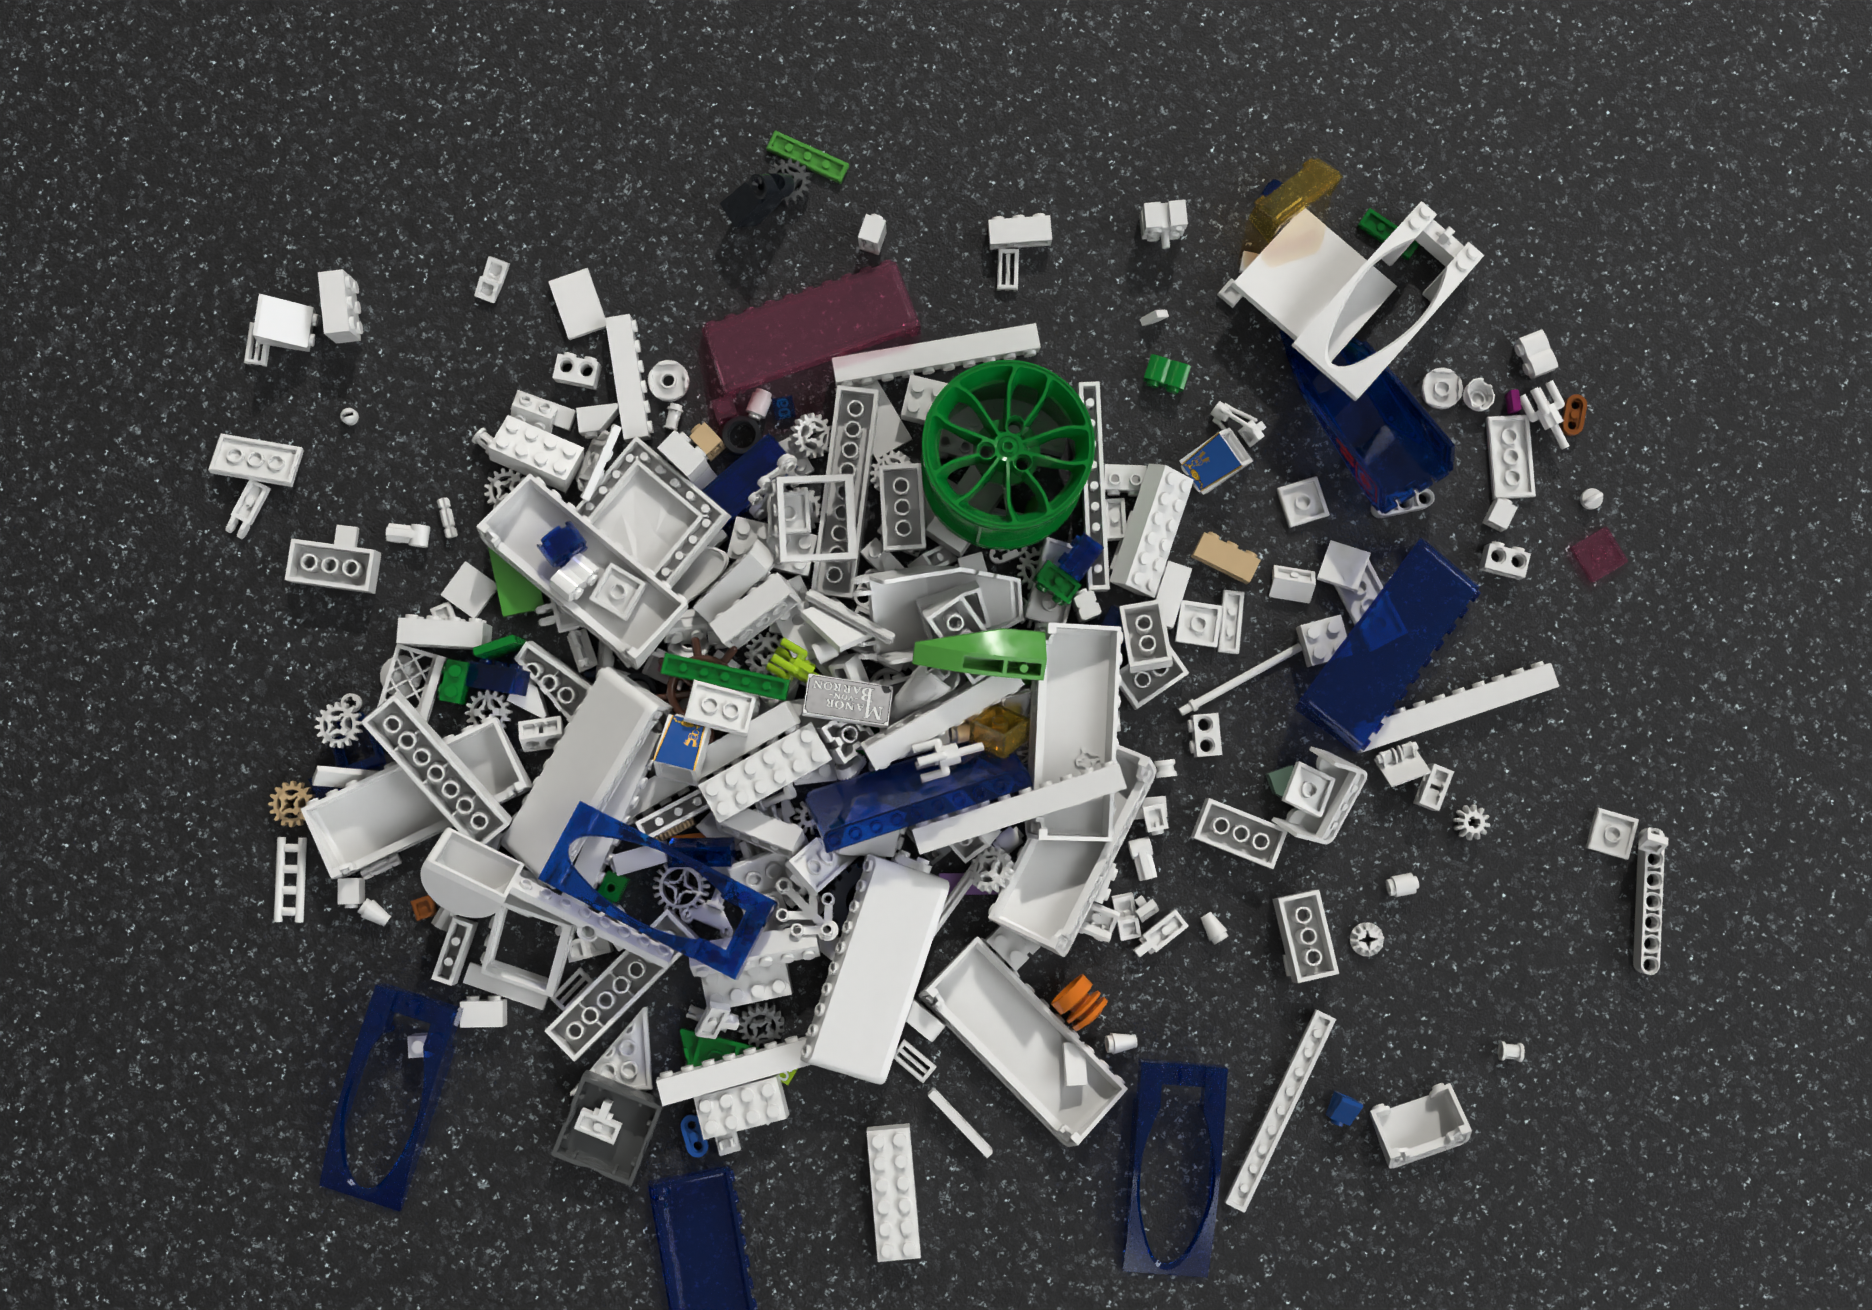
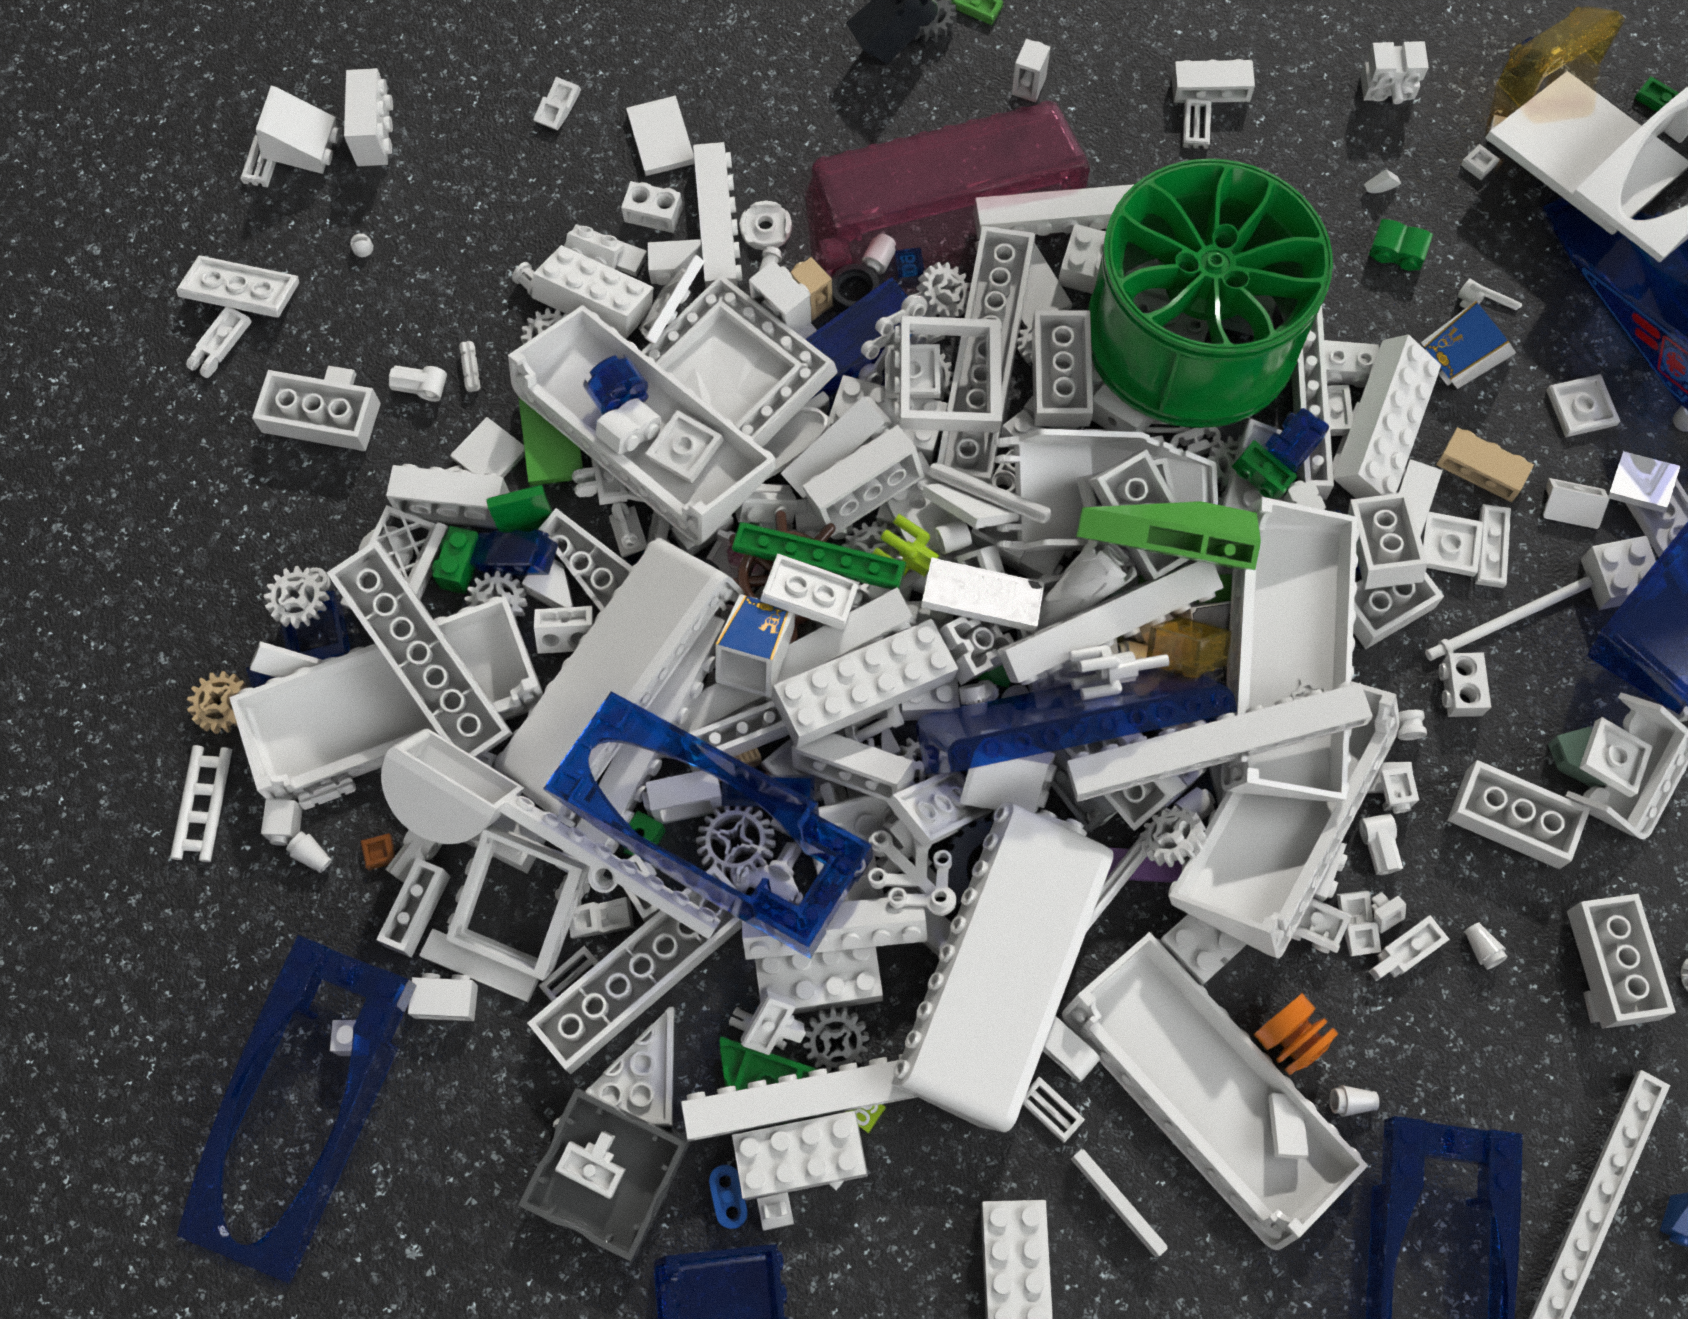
camera: 10 degrees right, 15 degrees down
(1252, 437) = (1513, 319): white tile -> none

